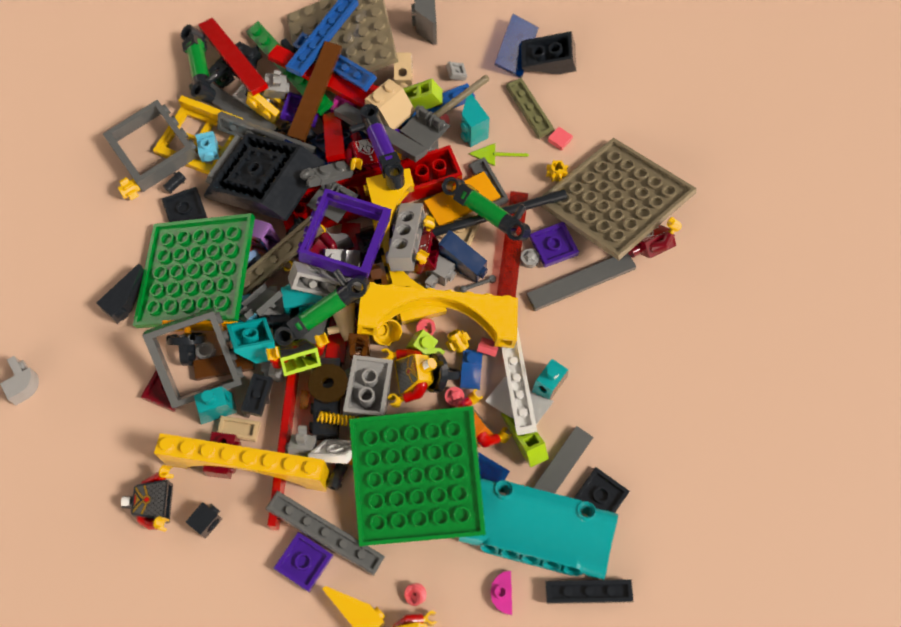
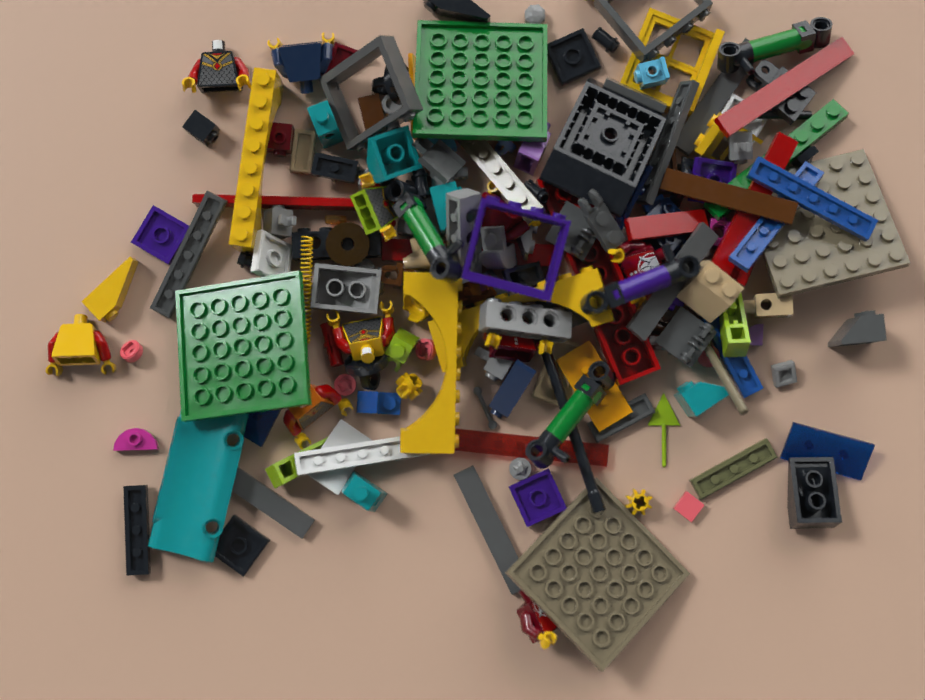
camera: 85 degrees right, 20 degrees up
(143, 234) = (534, 14): none -> light grey tile
(153, 418) = (303, 61): none -> dark blue torso
(431, 403) = (333, 351): none -> red pin
(487, 347) = (402, 419): coral tile -> none

